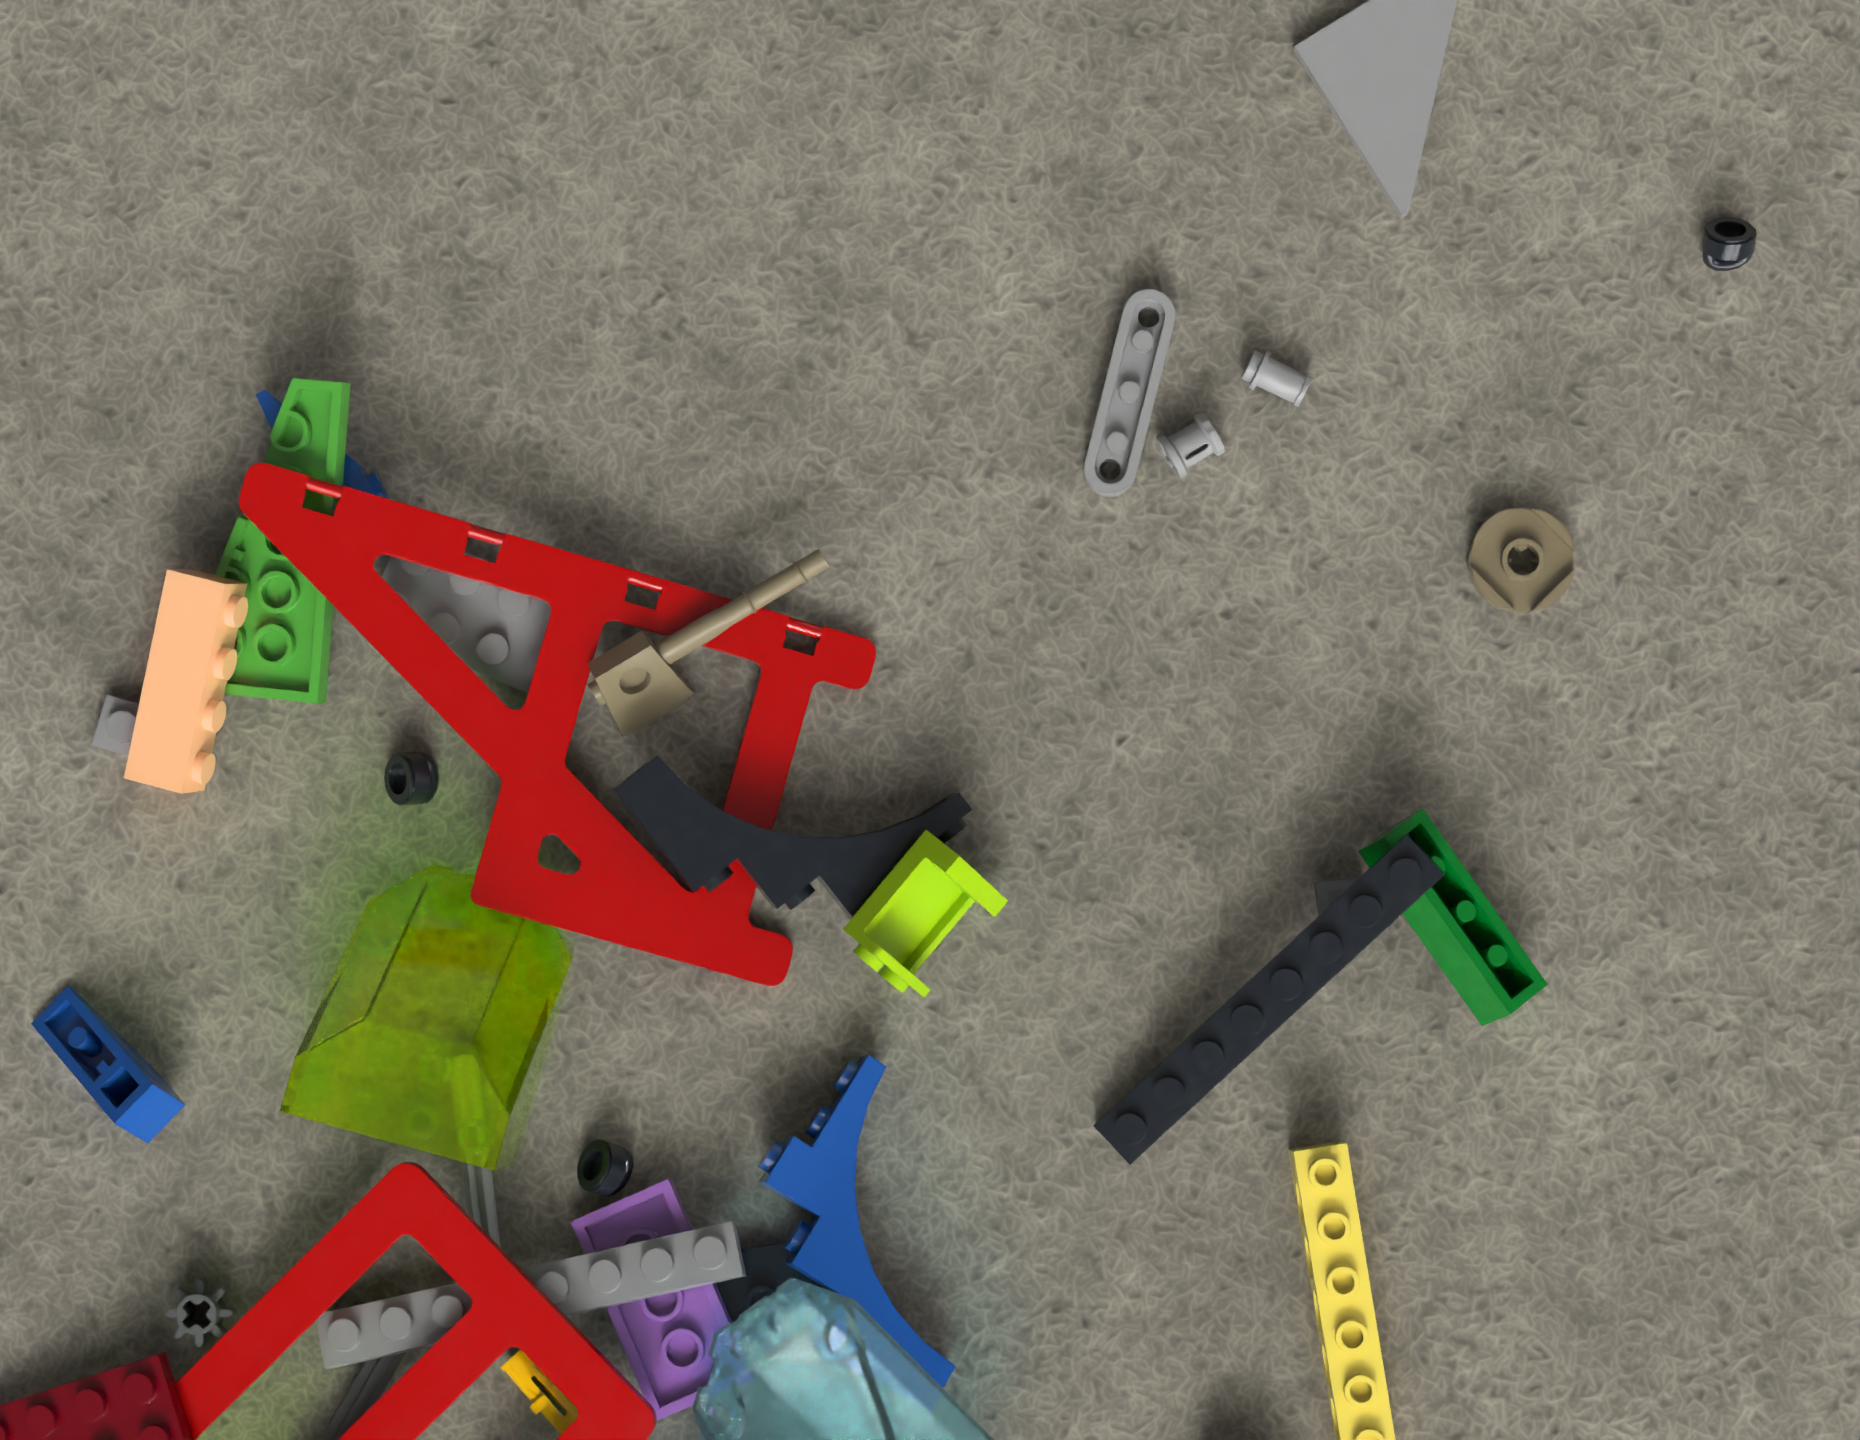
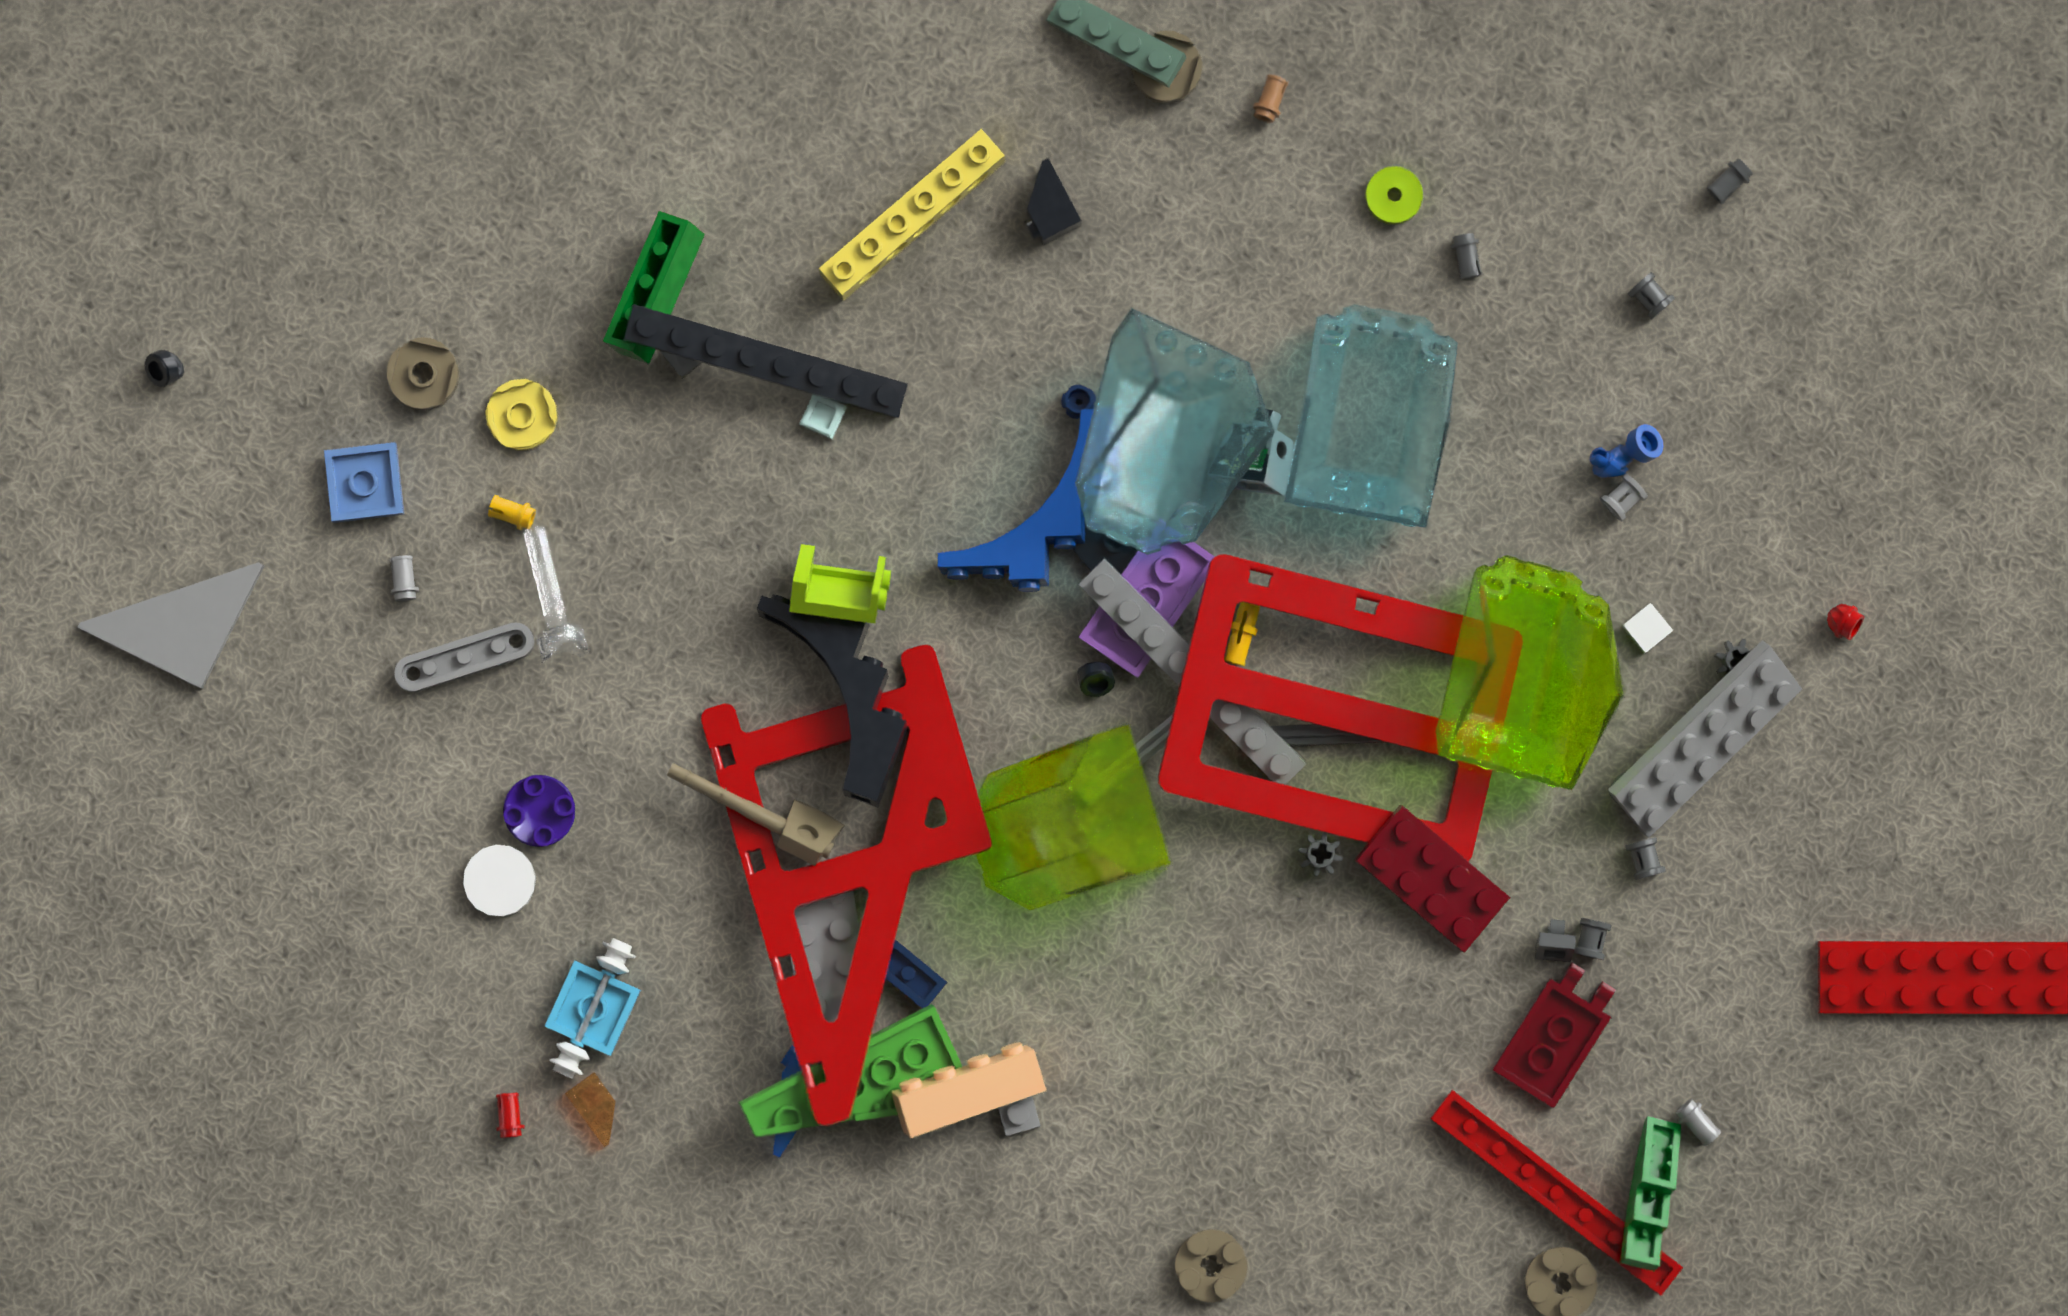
camera: 125 degrees left, 0 degrees up
(108, 1066) = (1215, 998): blue slope -> none
(374, 704) = (913, 976): none -> dark blue plate
(411, 778) = (944, 930): black tile -> none
(470, 213) = (595, 1106): none -> clear orange tile
(525, 100) = (509, 1115): none -> red pin
(591, 282) = (592, 1008): none -> medium azure plate
(823, 267) = (499, 880): none -> white tile
(879, 368) = (539, 810): none -> dark purple dish
(984, 1374) = (1074, 393): none -> dark blue plate
(1083, 527) = (560, 635): none -> clear piece
(1155, 1031) = (823, 416): none -> light aqua tile
(1190, 445) = (473, 603): light grey bush -> none
(1275, 564) = (512, 512): none -> yellow pin
(1377, 665) = (526, 424): none -> light yellow tile
(1428, 403) = (364, 482): none -> medium blue plate

